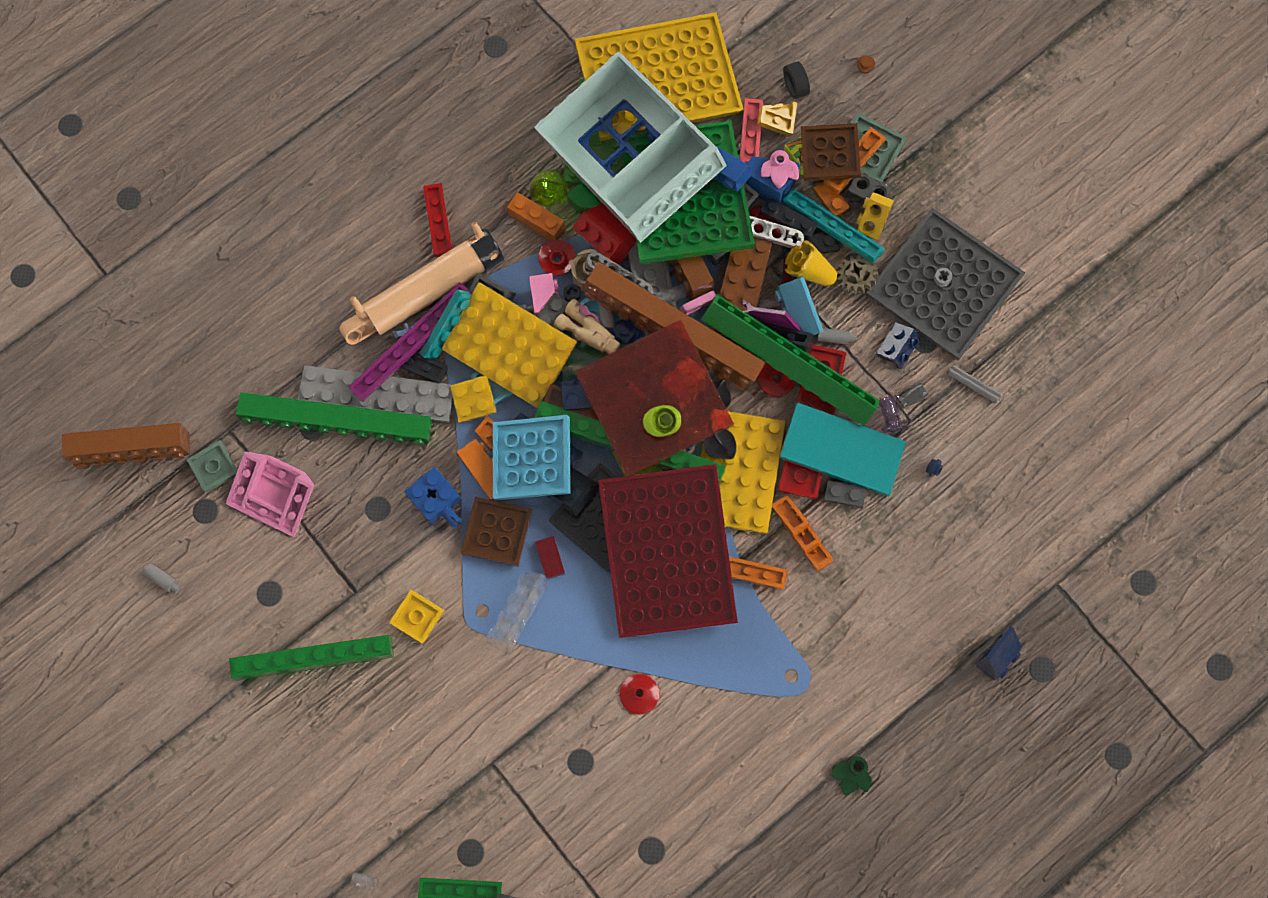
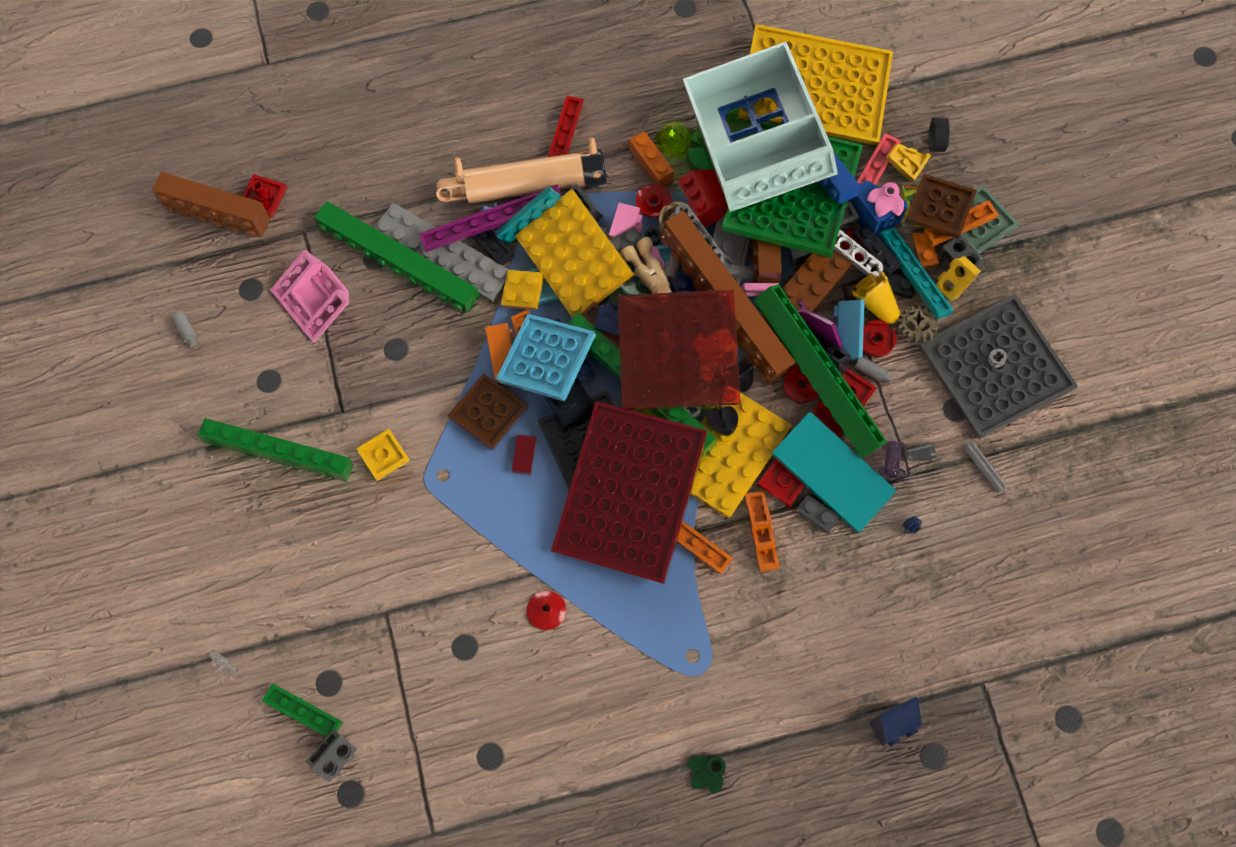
camera: 25 degrees right, 5 degrees down
(167, 408) = (262, 190): none -> red plate
(213, 466) = (274, 253): sand green plate -> none
(431, 507) = (451, 367): blue brick -> none
(518, 611) = (472, 488): clear slope -> none
(662, 420) = (675, 370): lime hat -> none
(836, 299) = (884, 332): none -> red plate
(865, 64) = (1009, 147): dark orange plate -> none
(899, 345) = (929, 402): bracket -> none

